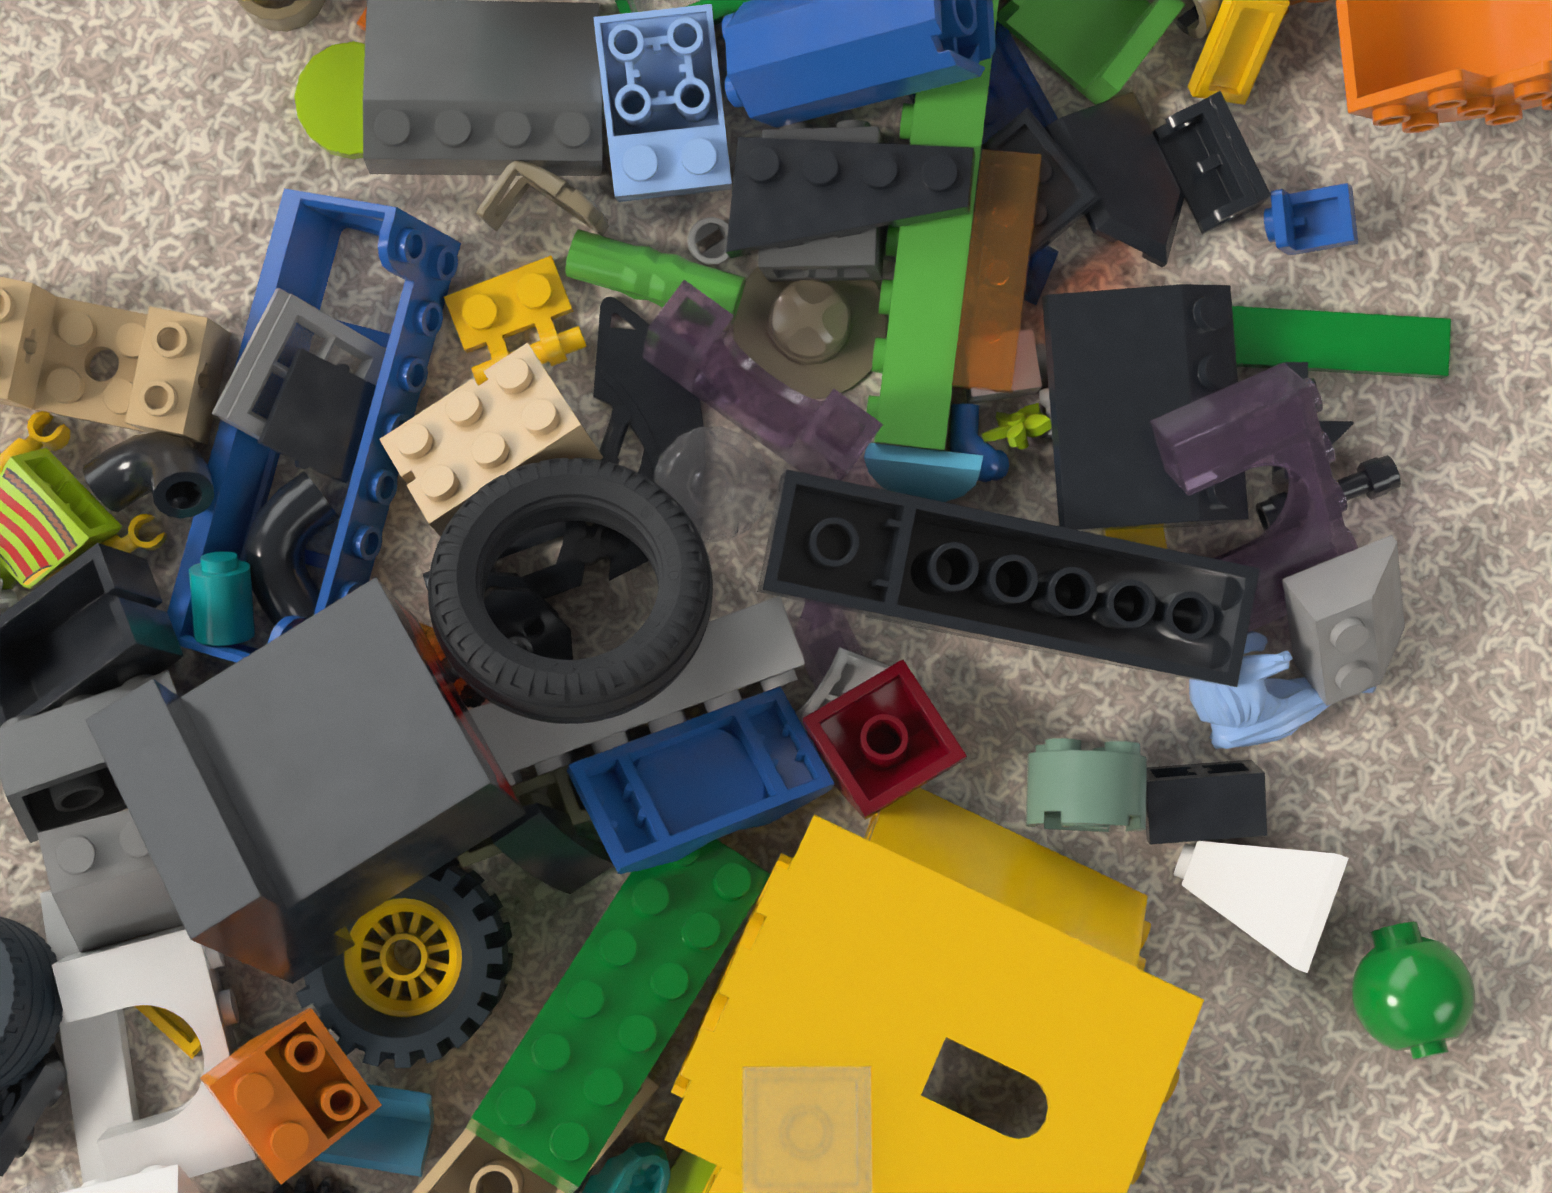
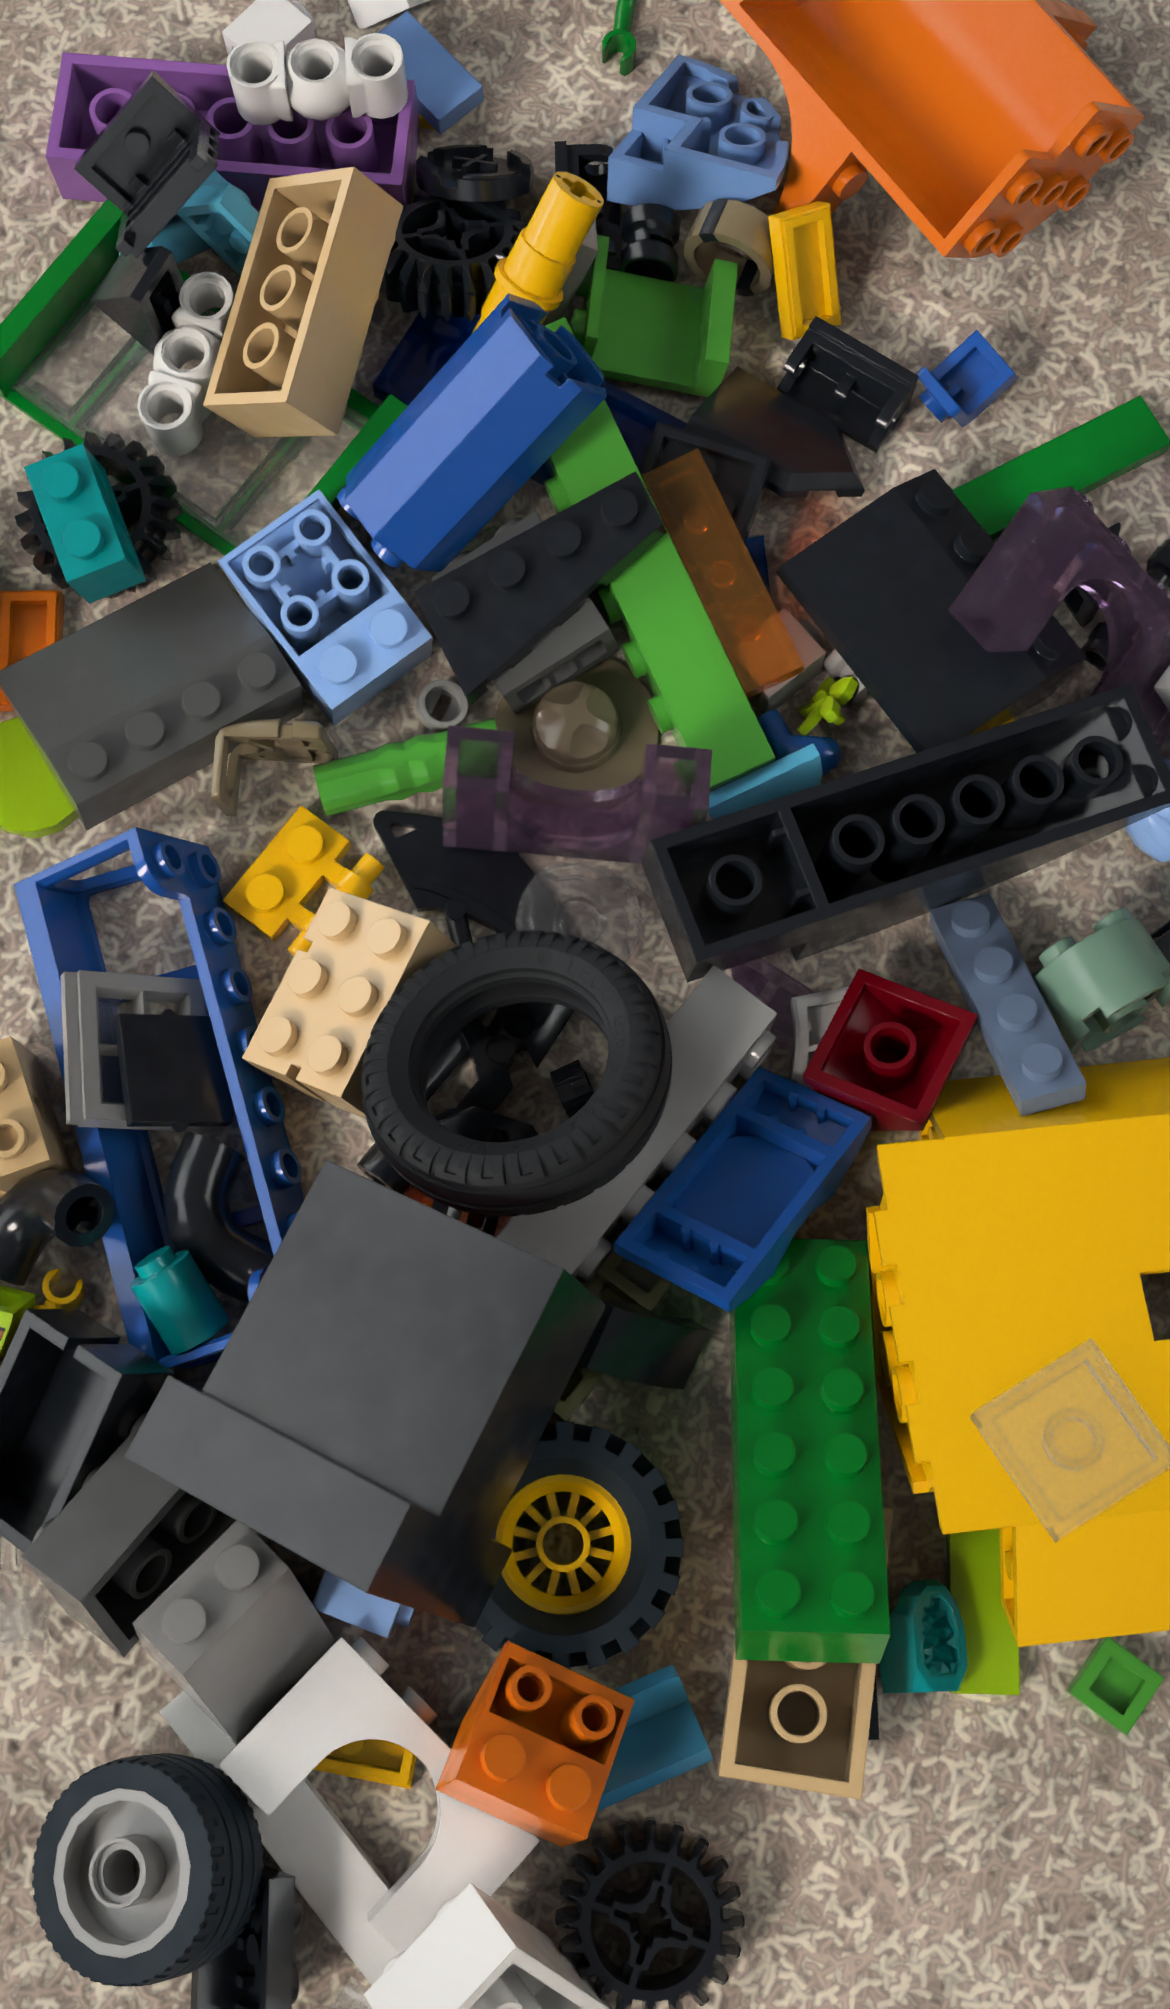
camera: 30 degrees left, 10 degrees down
(625, 616) = (572, 1086): none -> black axle
(997, 759) = (1008, 1005): none -> sand blue plate

